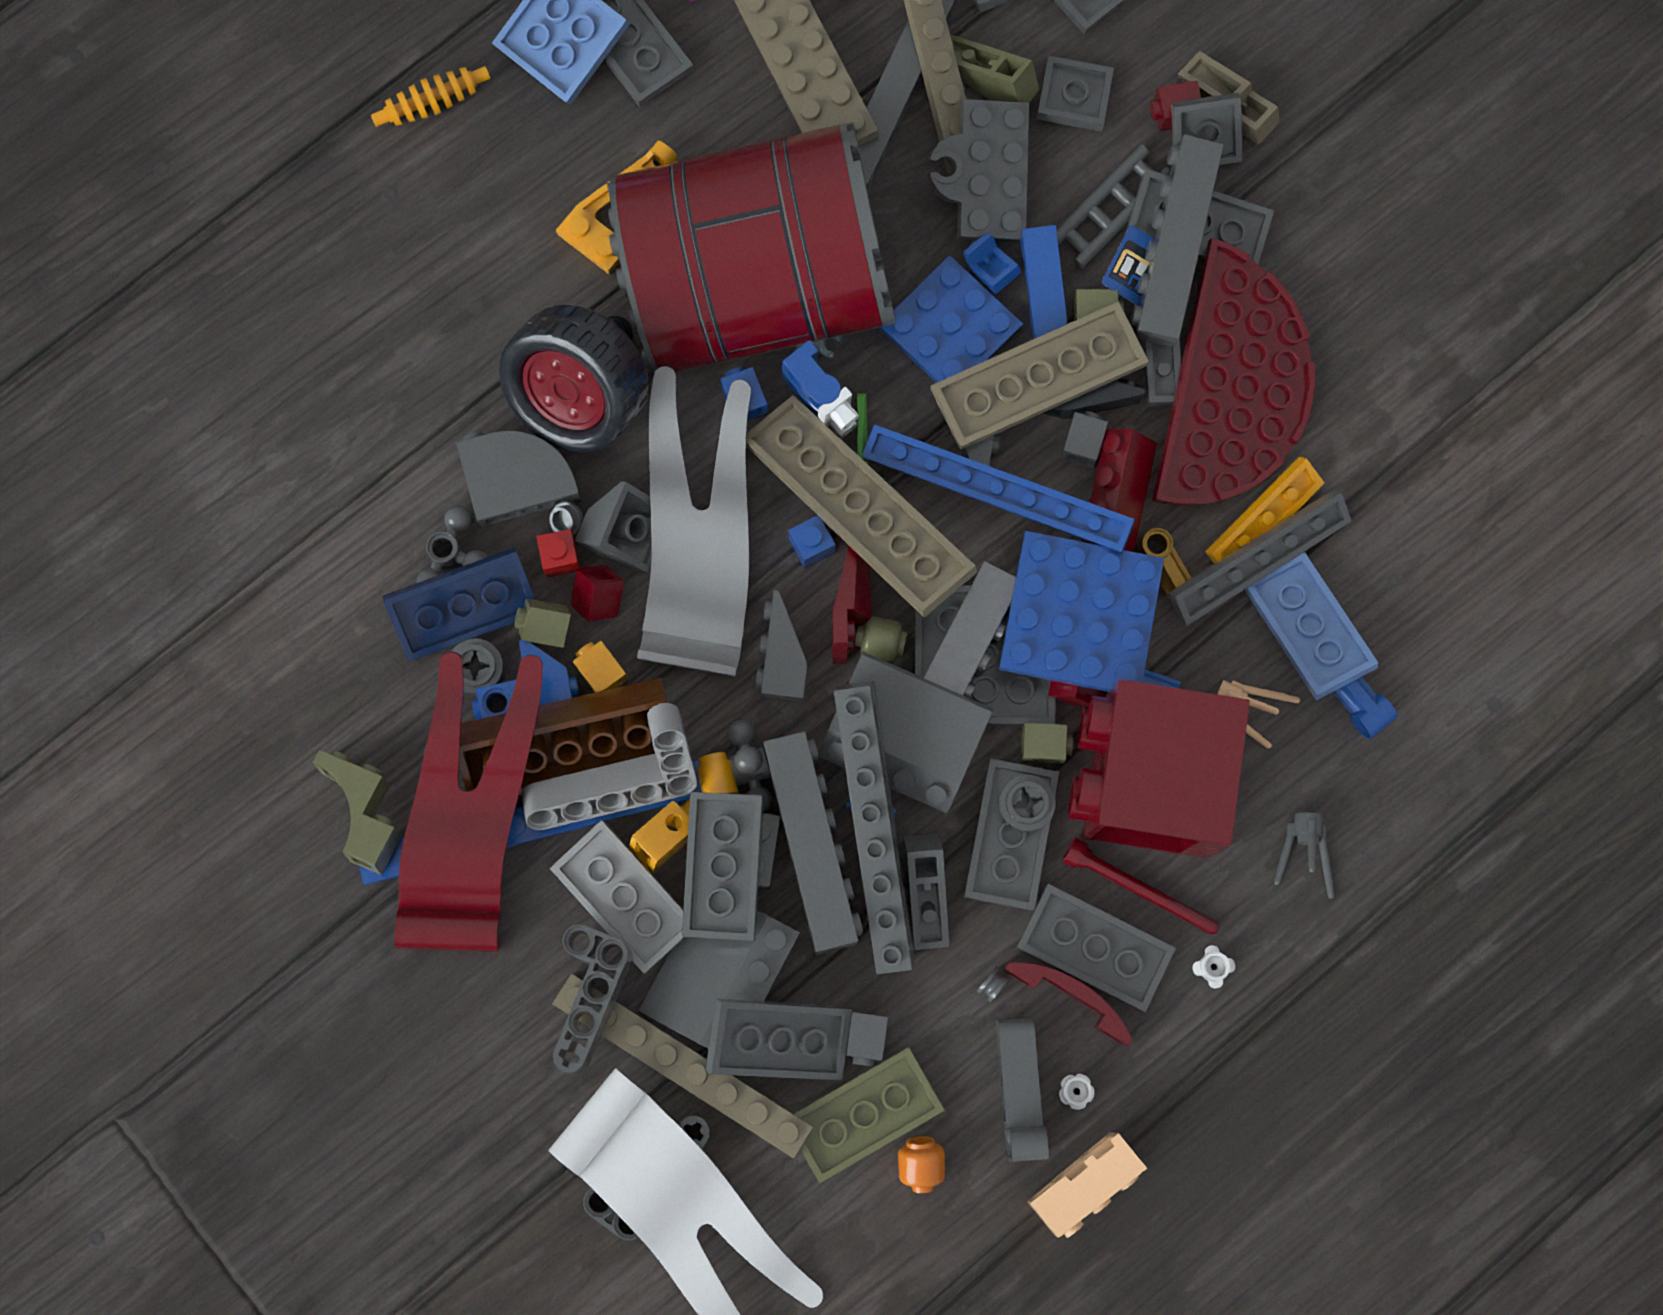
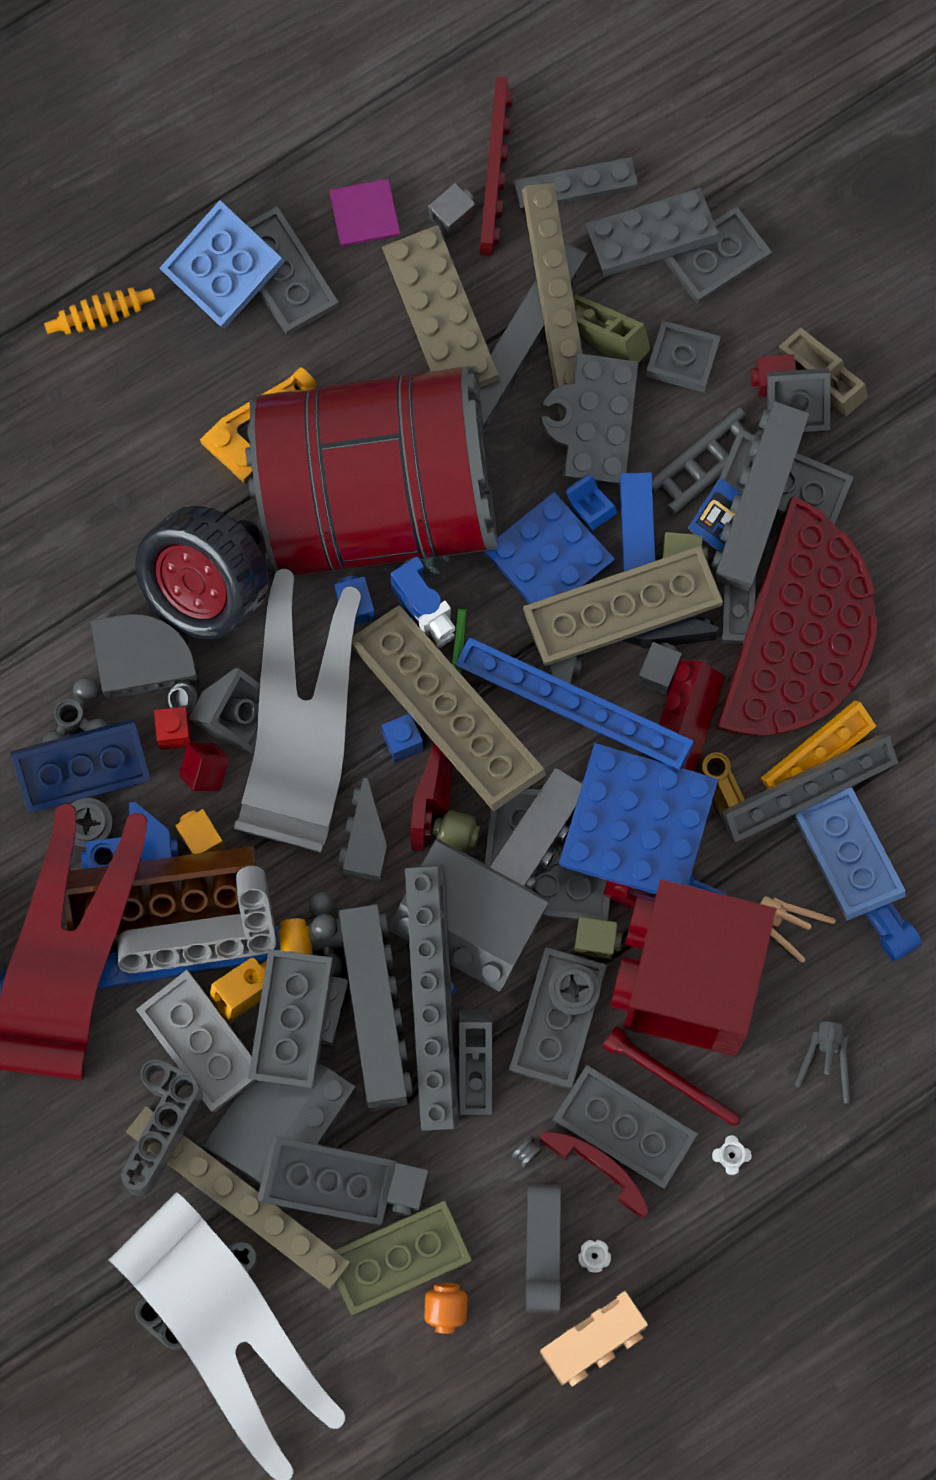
camera: 10 degrees right, 5 degrees down
(543, 622) = (152, 788): olive brick -> none

